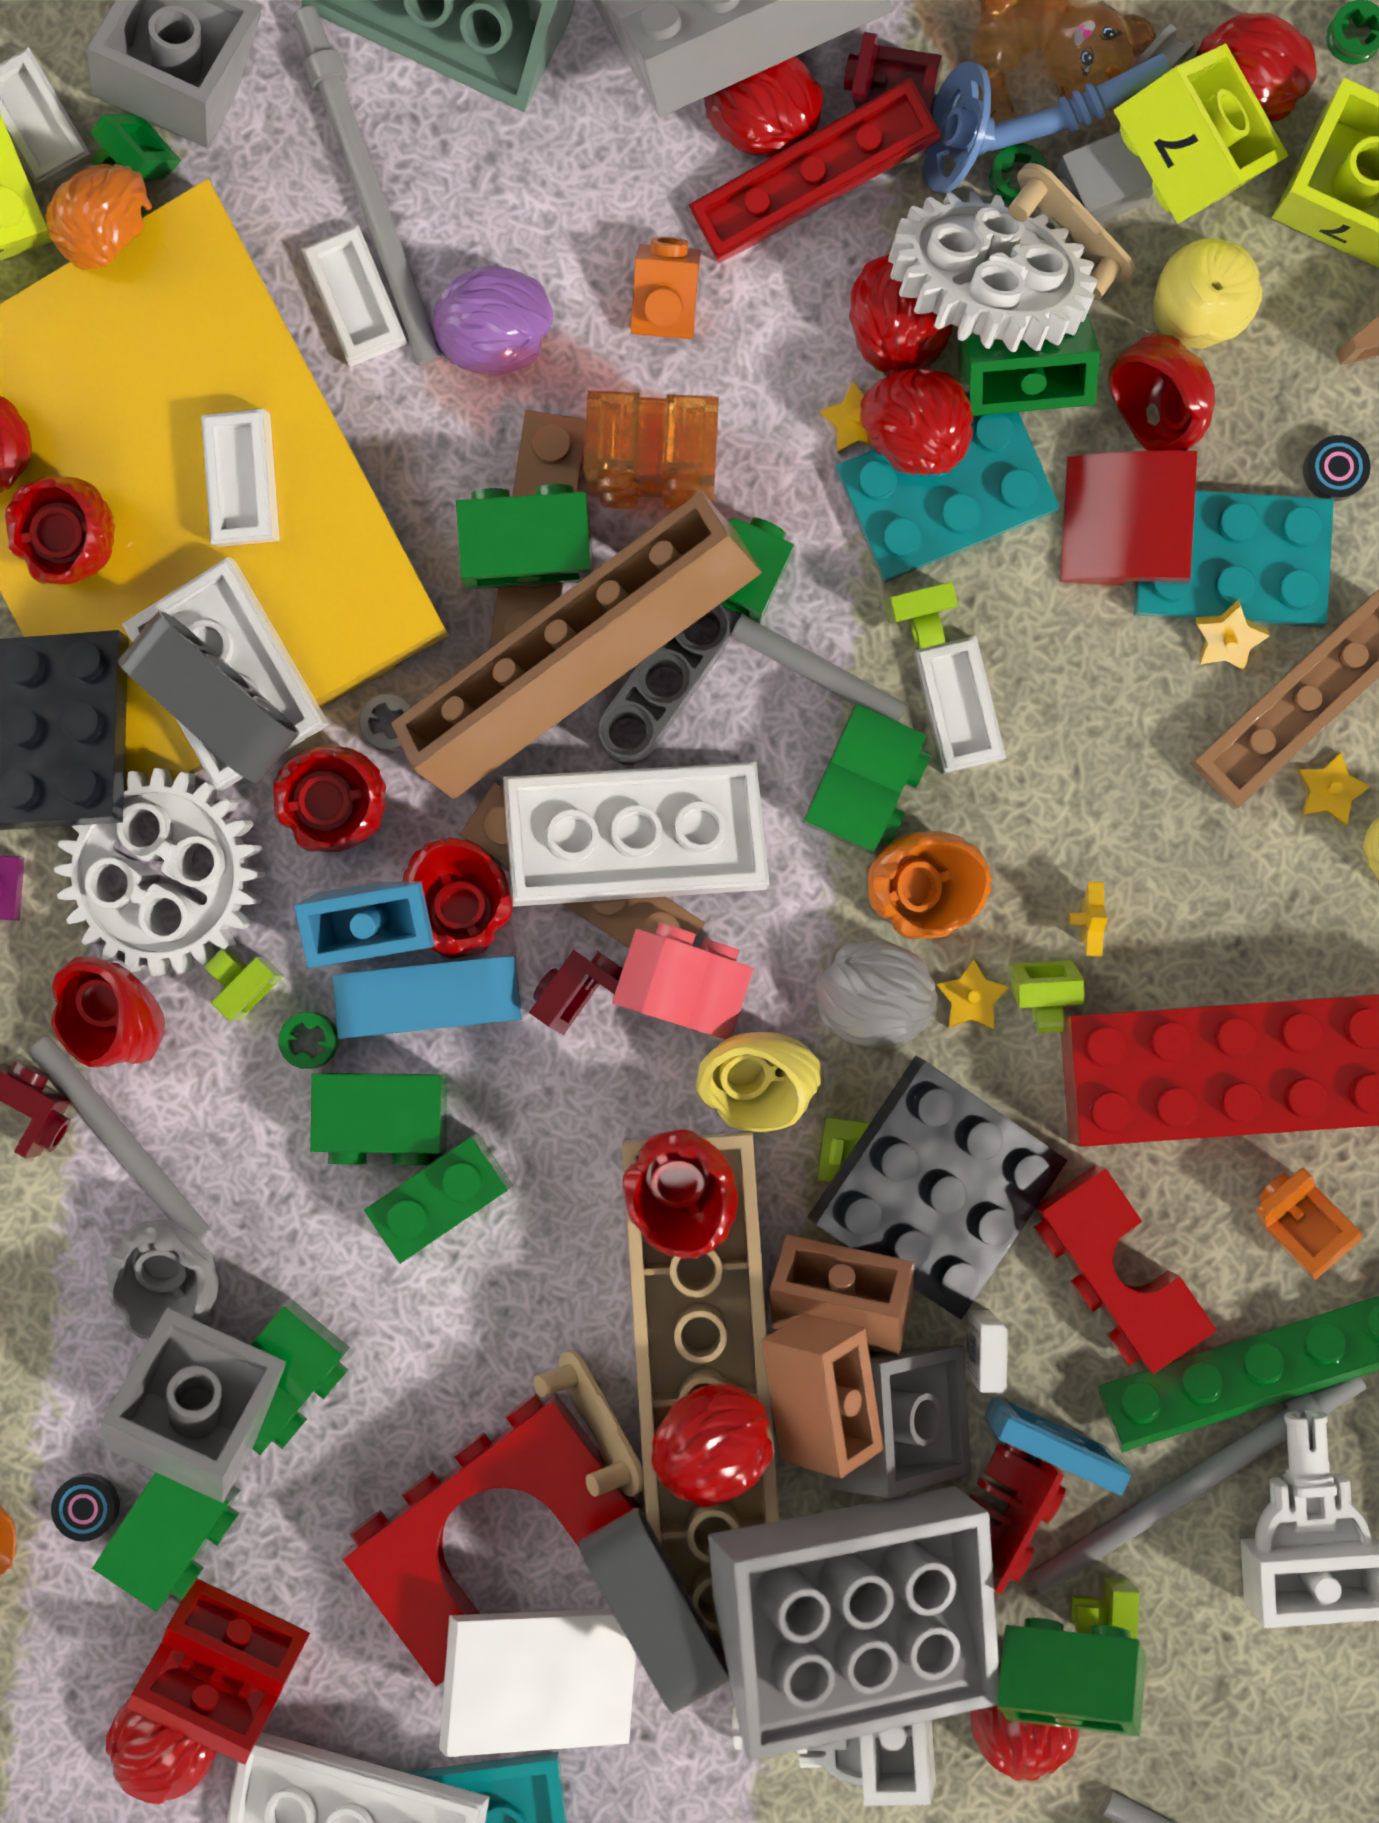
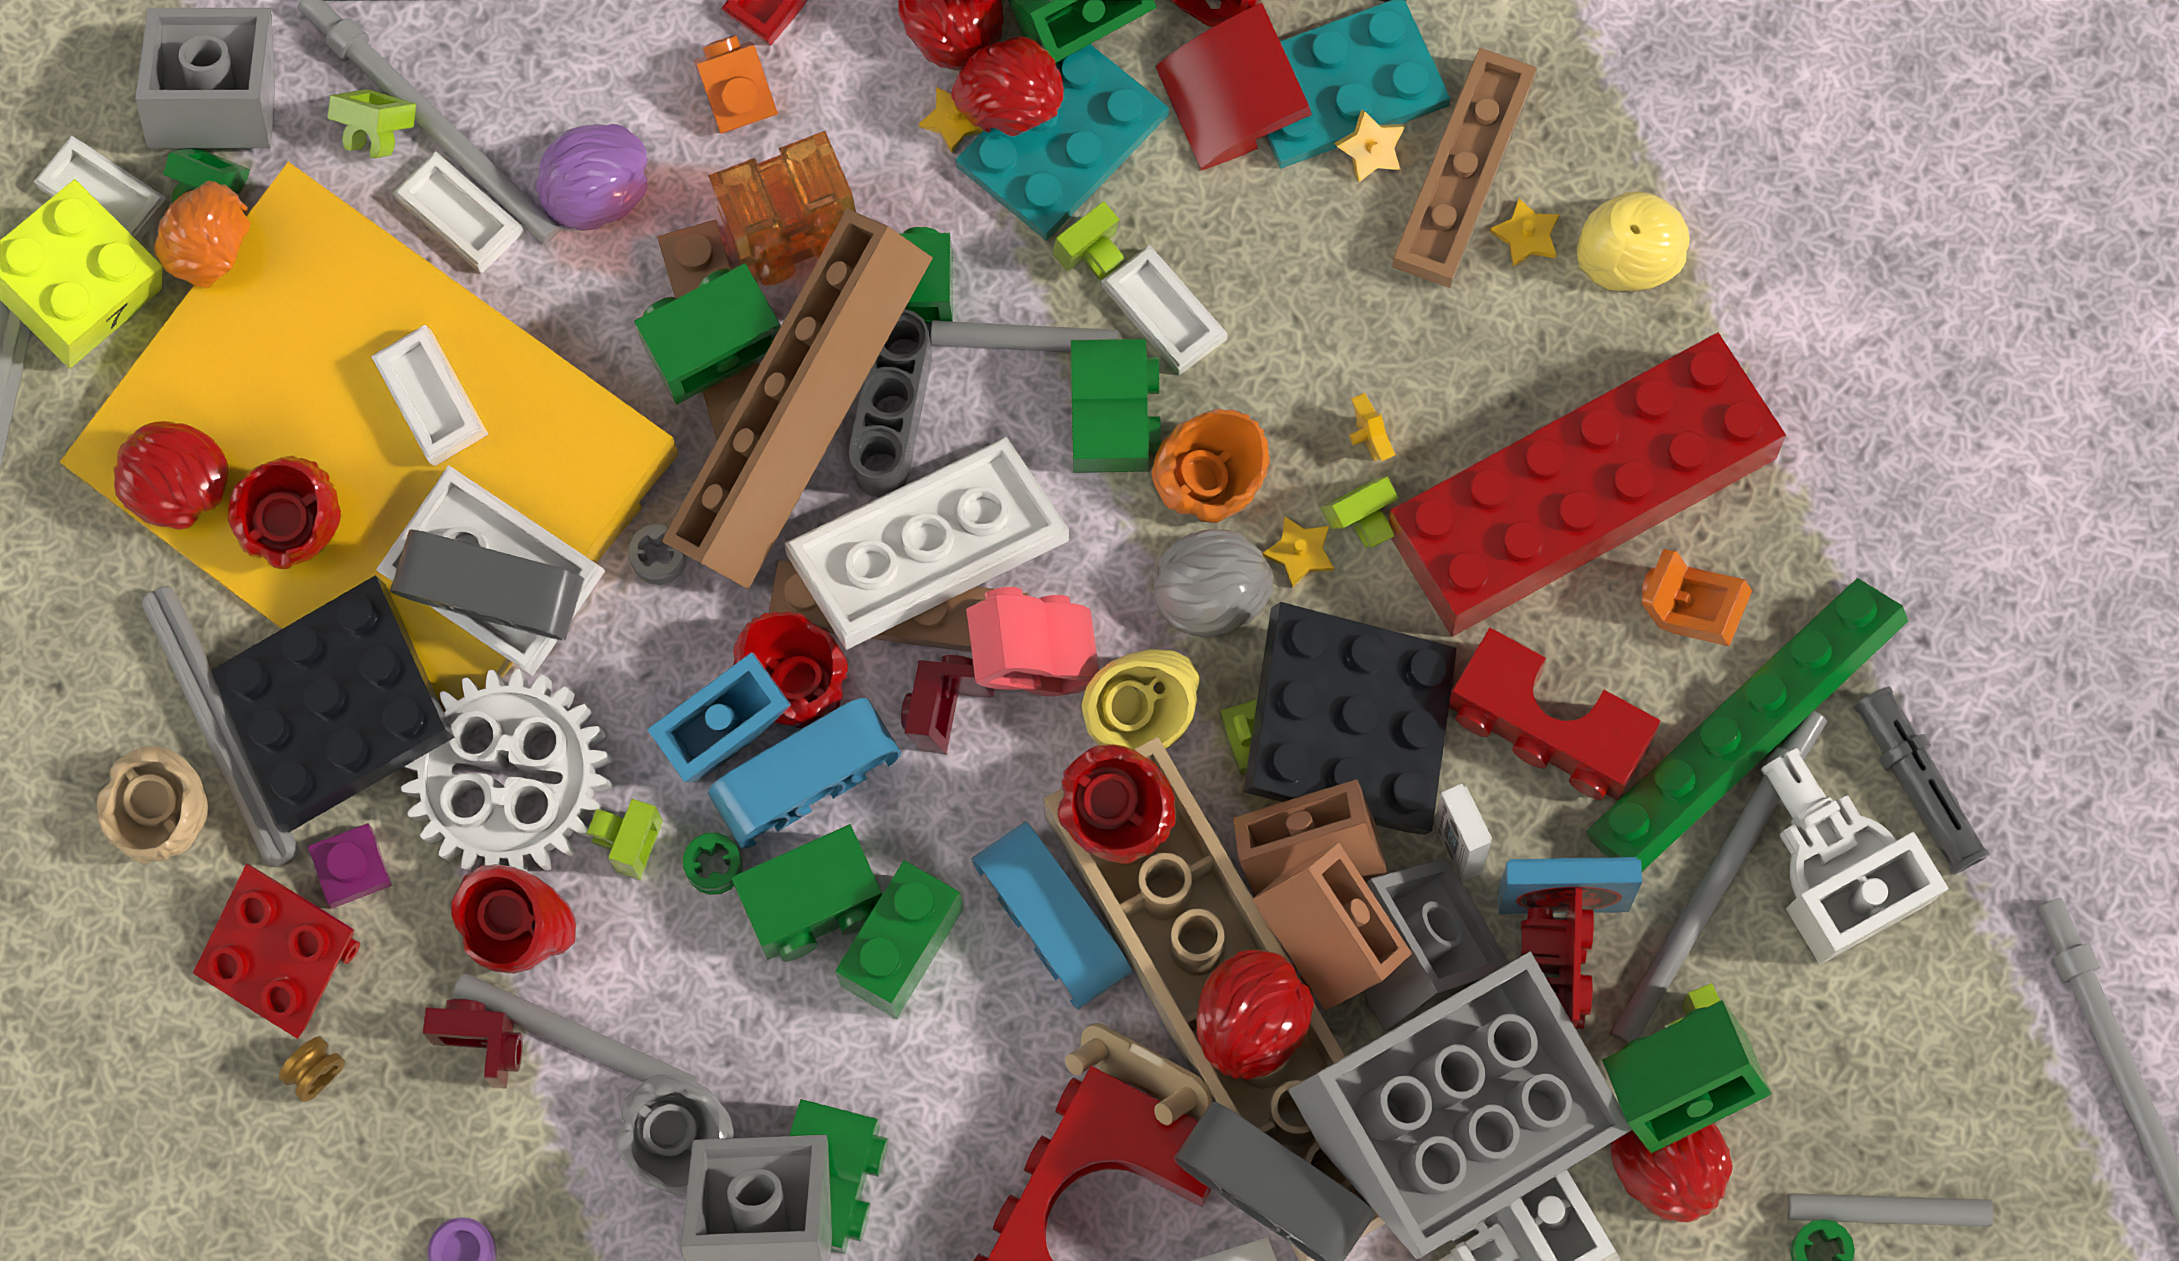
camera: 25 degrees left, 15 degrees down
(313, 161) = (373, 115): none -> lime tile
(329, 798) = (634, 638): red hair -> none
(584, 1235) = (1053, 914): none -> dark azure beam

